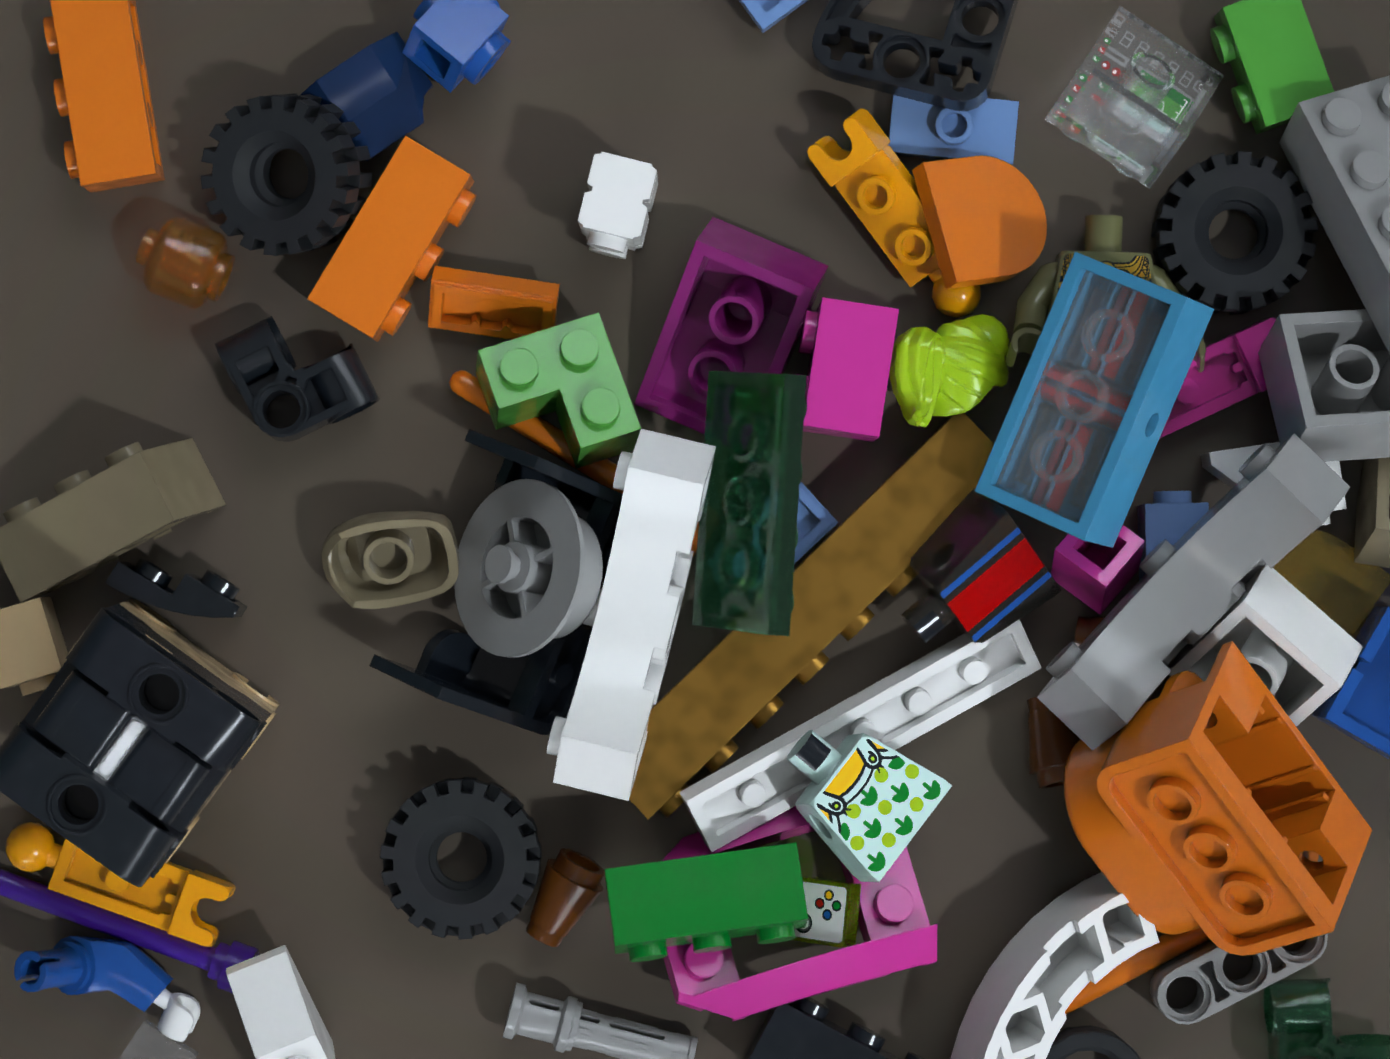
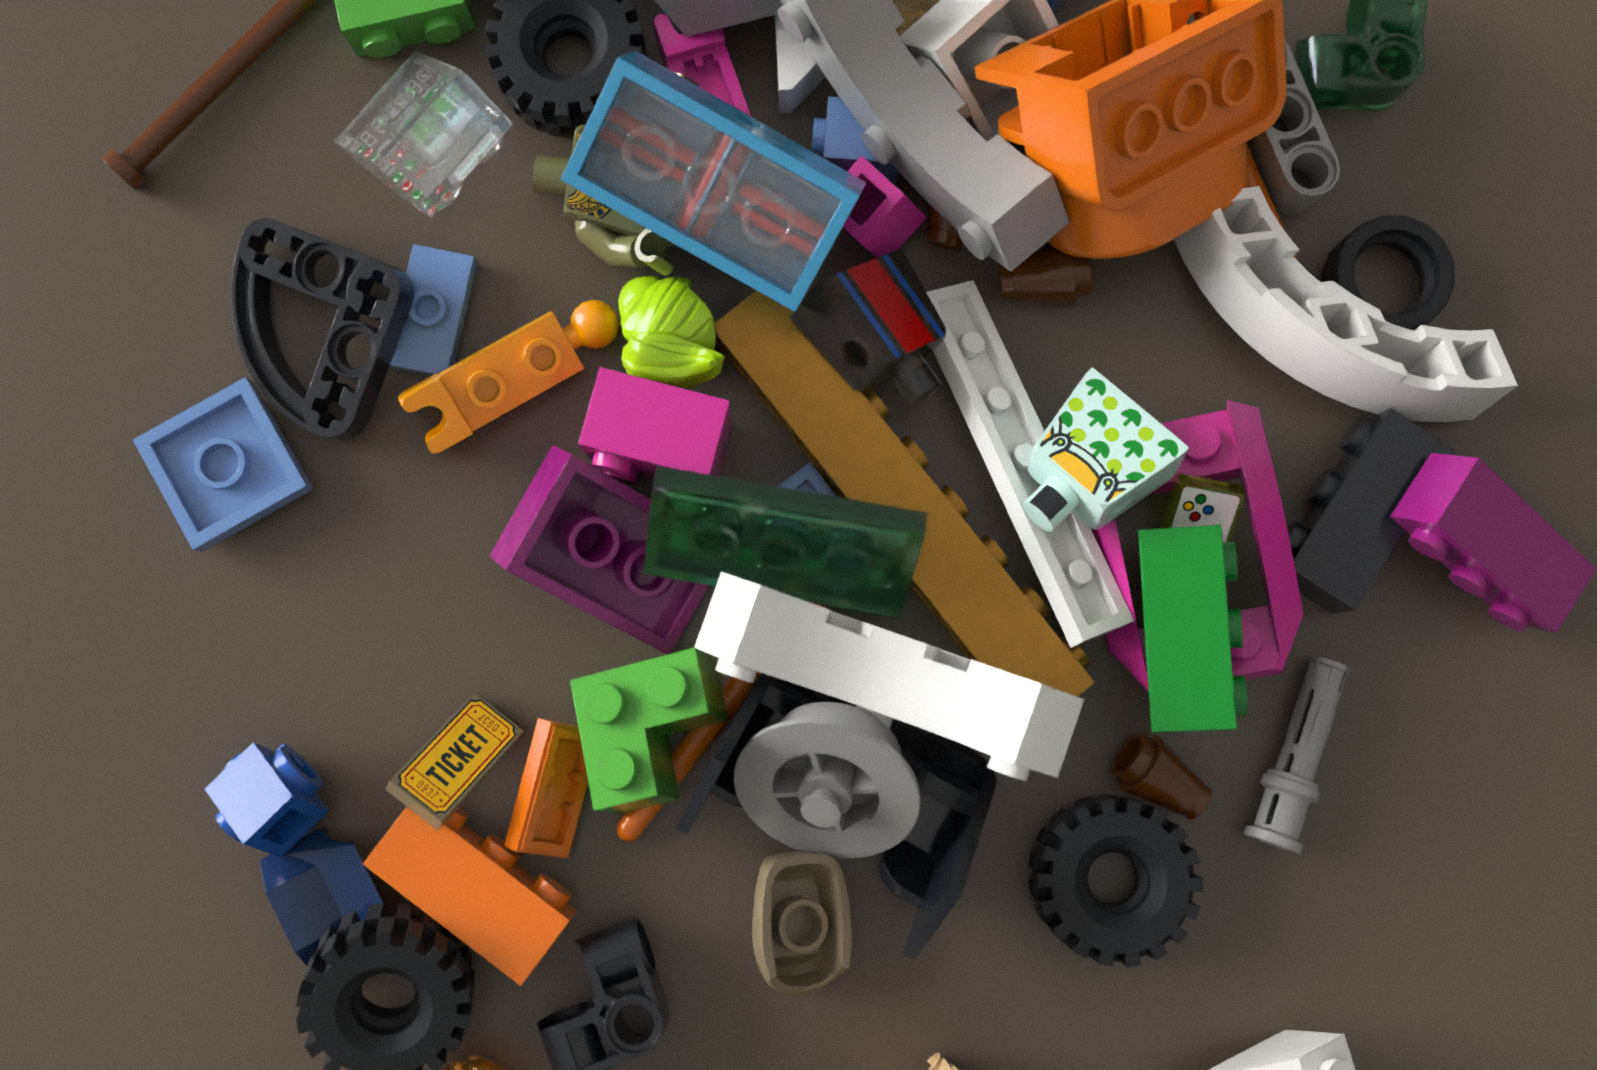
camera: 90 degrees left, 5 degrees down
(511, 209) = (454, 761): none -> tile
(617, 204) = (459, 649): white brick -> none
(980, 219) = (522, 290): orange tile -> none

